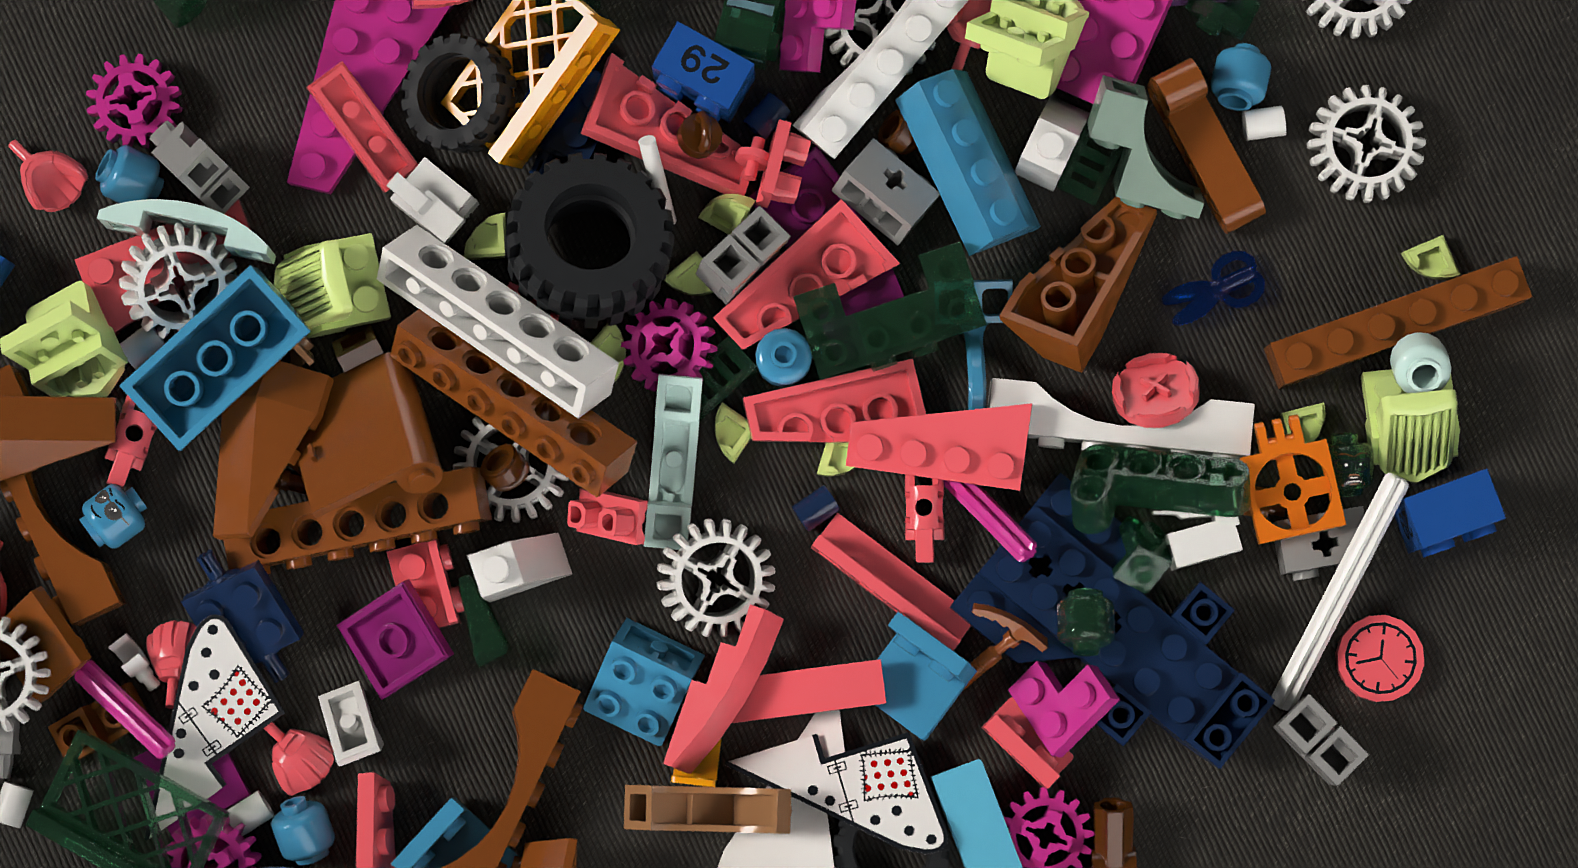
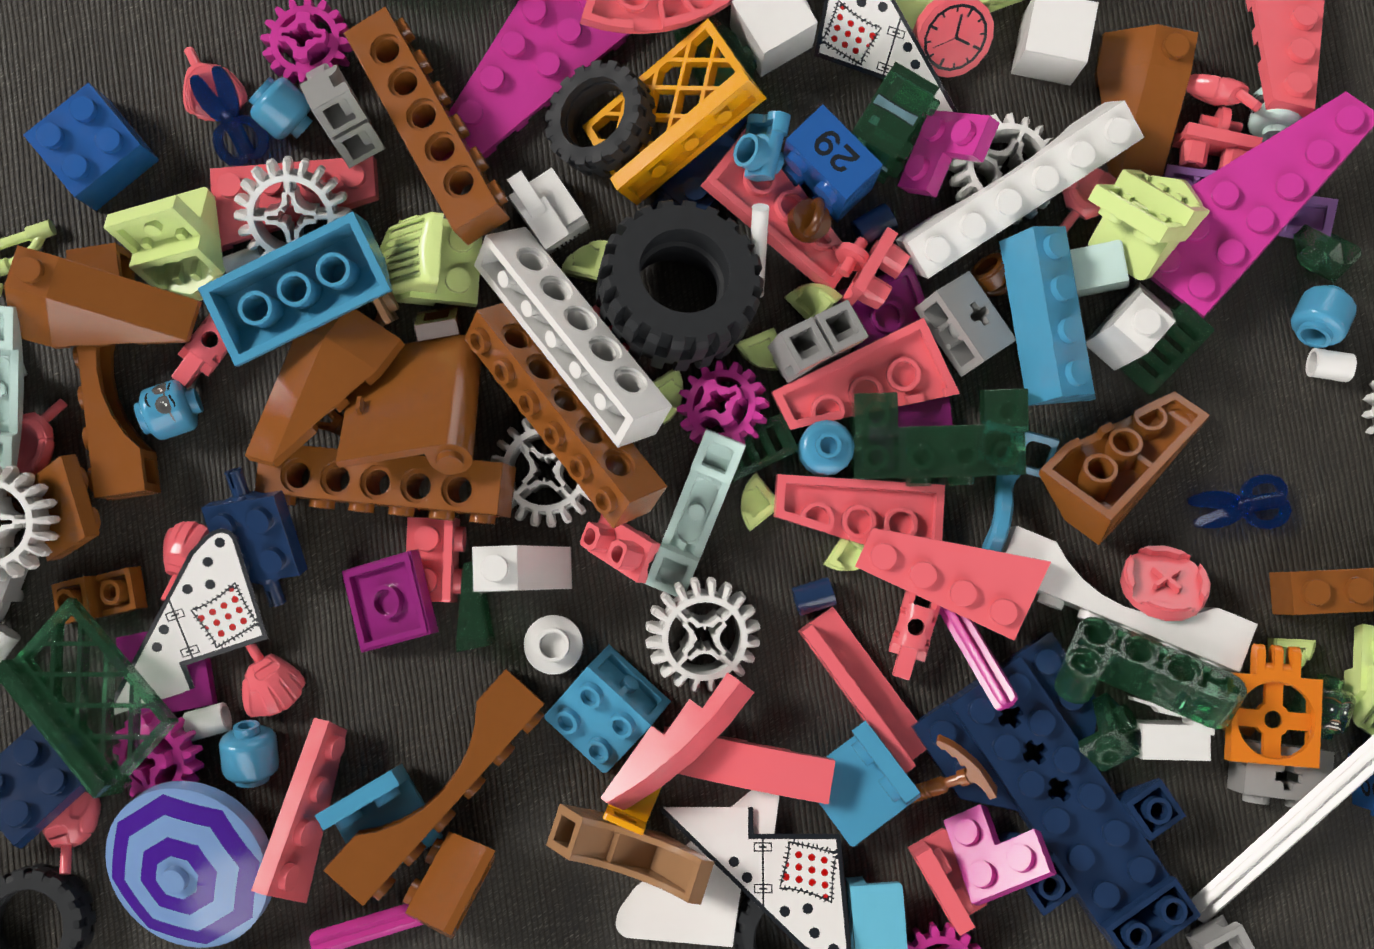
camera: 20 degrees right, 0 degrees up
(73, 196) = (225, 110): none -> clear blue piece
(125, 709) = (119, 592): dark pink axle -> none
(134, 661) = (149, 548): white piece -> none
(137, 217) = (278, 142): light aqua slope -> none
(205, 84) = (375, 45): none -> dark orange brick
(350, 723) = (322, 669): white slope -> none
(362, 125) = (503, 120): coral tile -> none
(504, 468) = (536, 473): reddish brown tile -> none
(571, 634) = (553, 644): none -> white piece
(630, 80) = (761, 145): none -> dark azure plate
(1002, 97) = (1099, 268): none -> light aqua panel
(1086, 621) = (1044, 786): clear green head -> none
(1139, 178) = (1212, 317): sand green arch -> none
(1204, 145) = (1271, 366): dark orange beam -> none
(1379, 658) = (1302, 897): coral tile -> none

